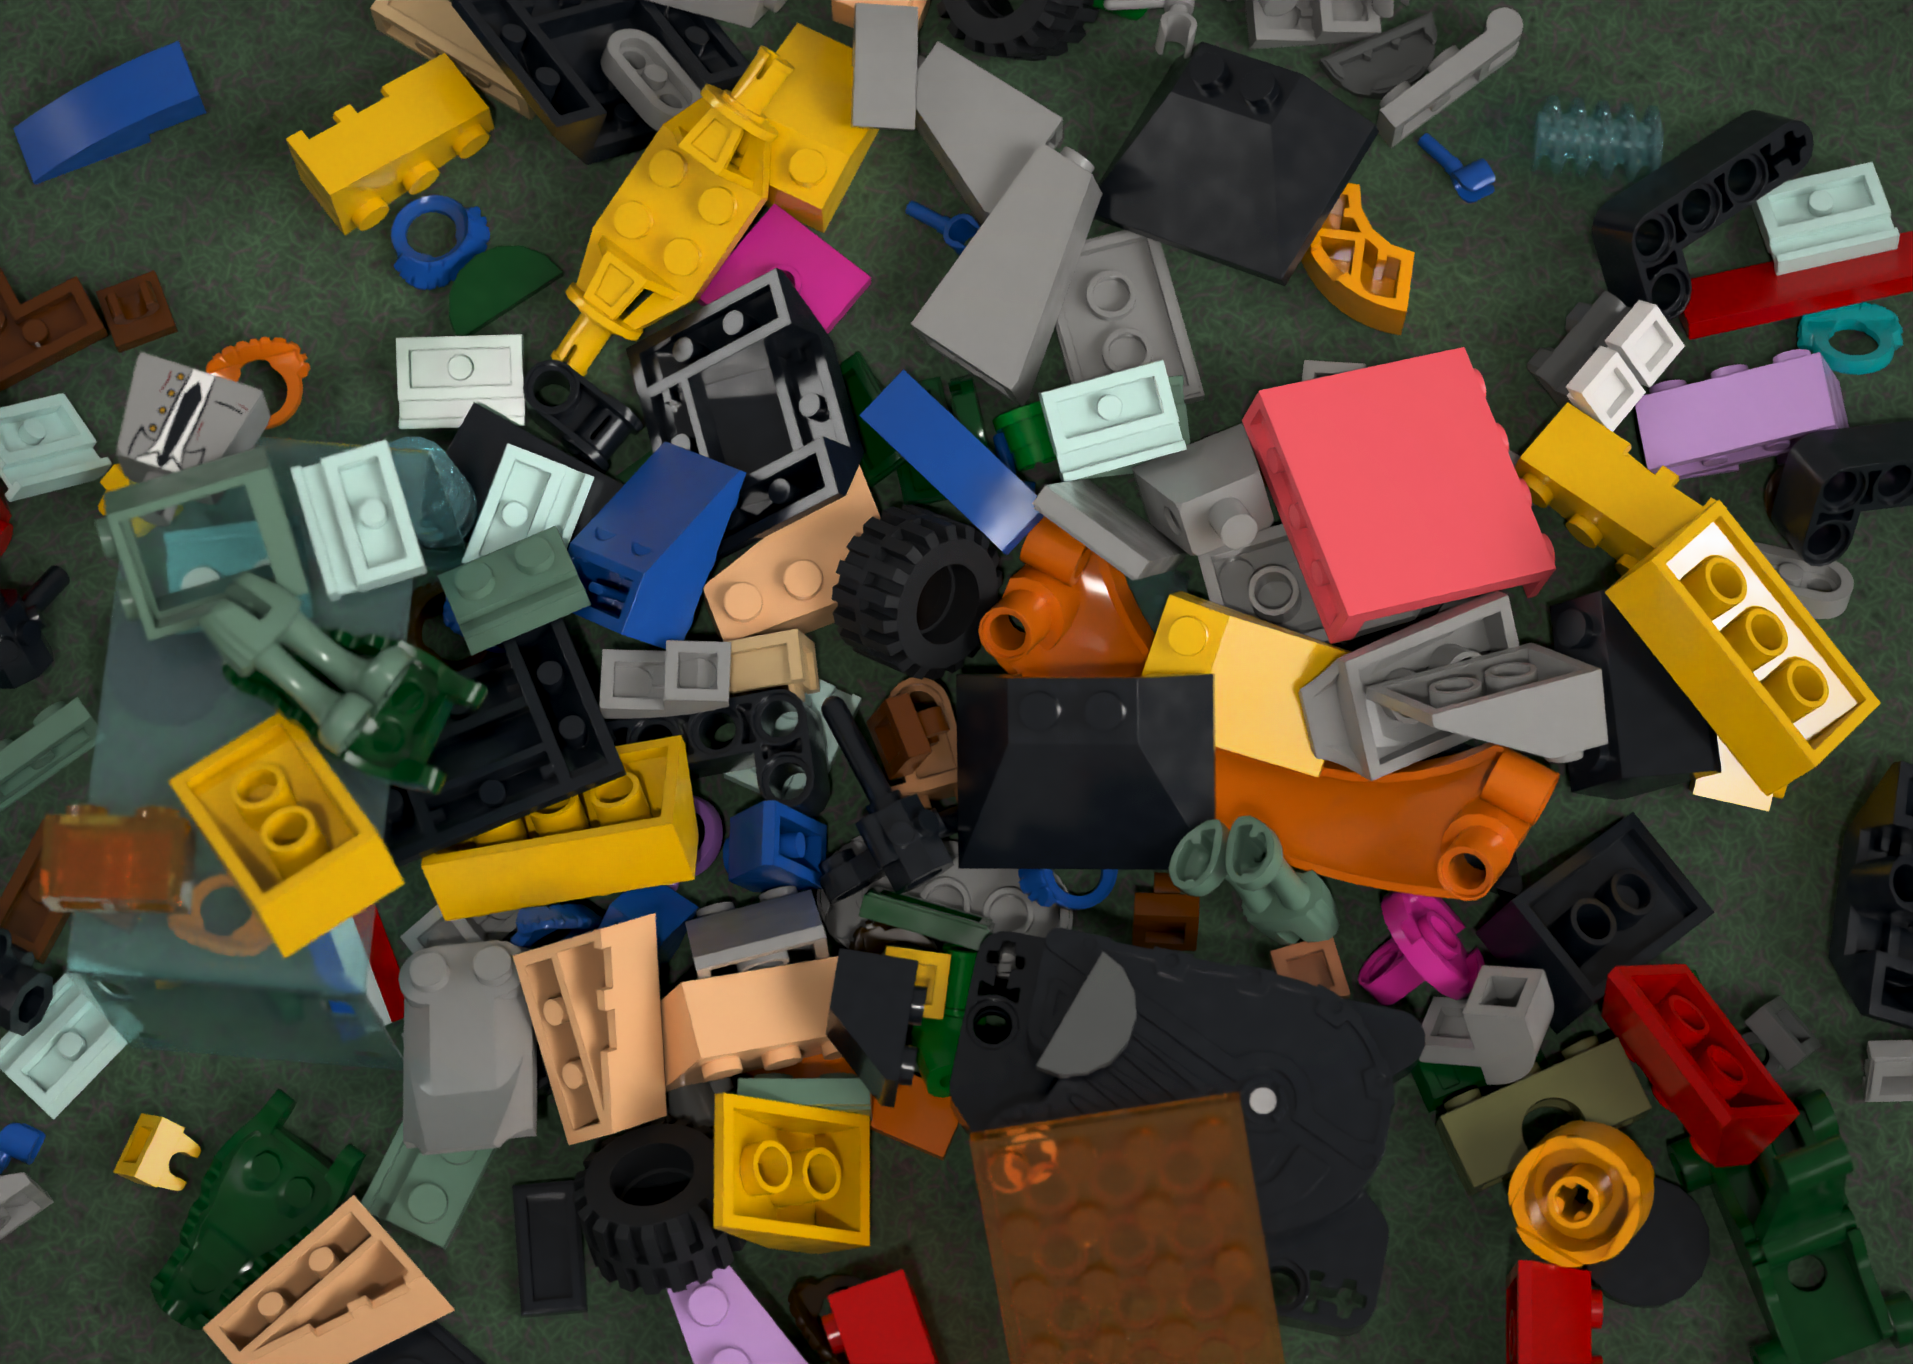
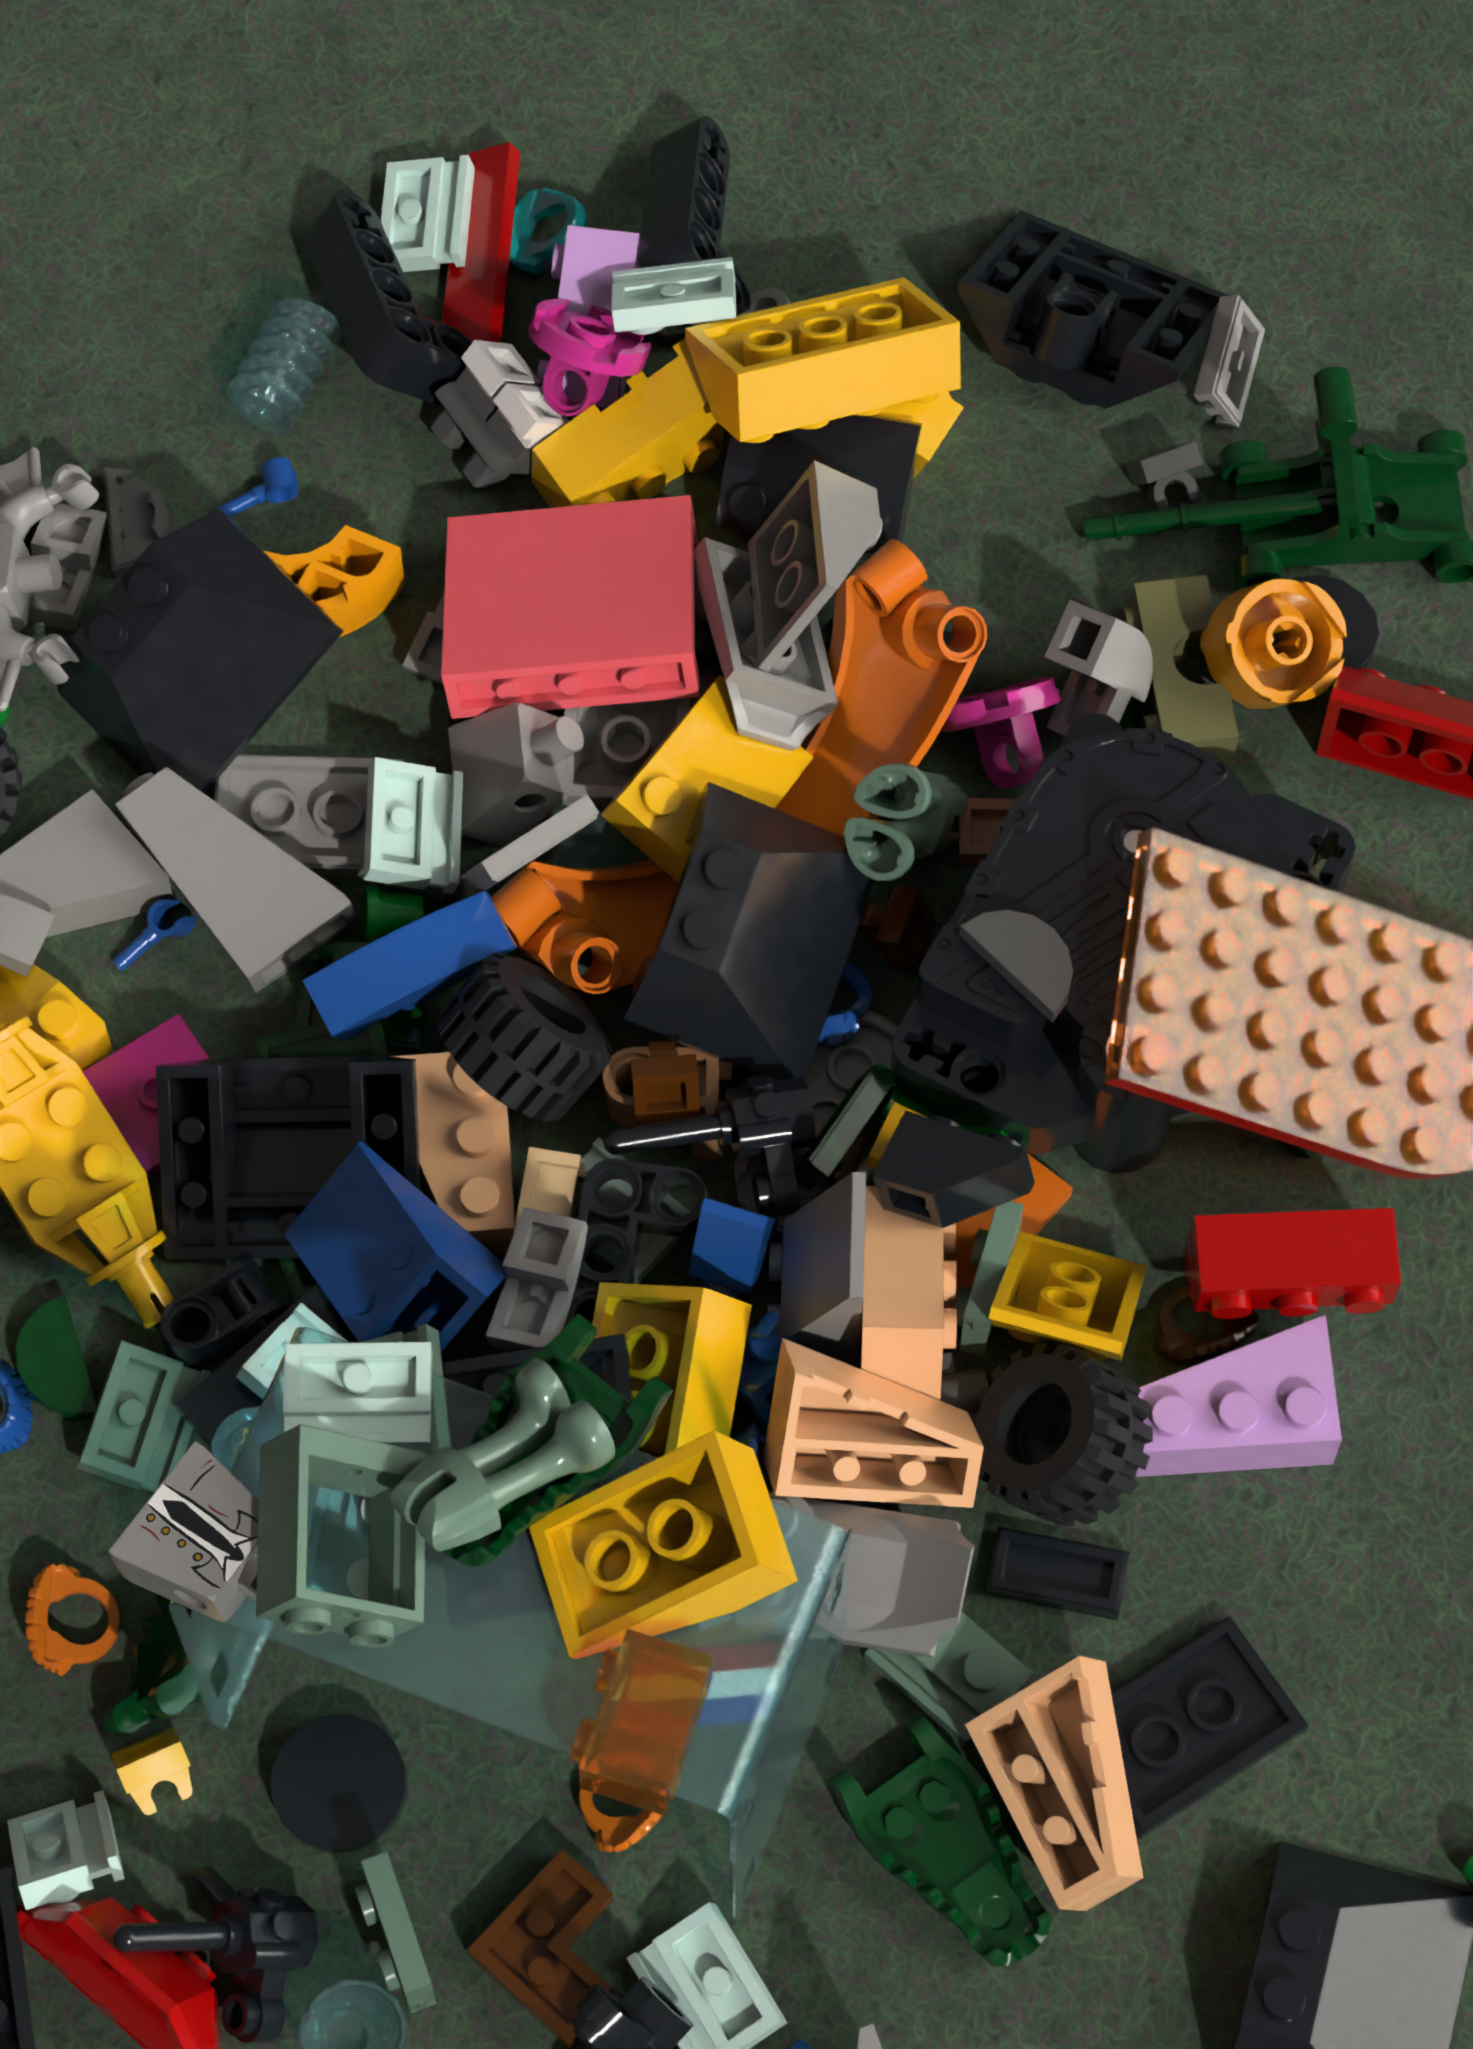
camera: 75 degrees left, 10 degrees down
(150, 1150) = (851, 1929): yellow tile -> none
(673, 904) = (763, 1341): none -> blue hand
(1450, 77) = (170, 458): light grey plate -> none
(1596, 911) = (1016, 574): black slope -> none
(1681, 413) = (586, 347): none -> dark pink tile
(1696, 1062) = (1182, 524): red slope -> none
(1764, 478) = (673, 295): none -> light aqua plate

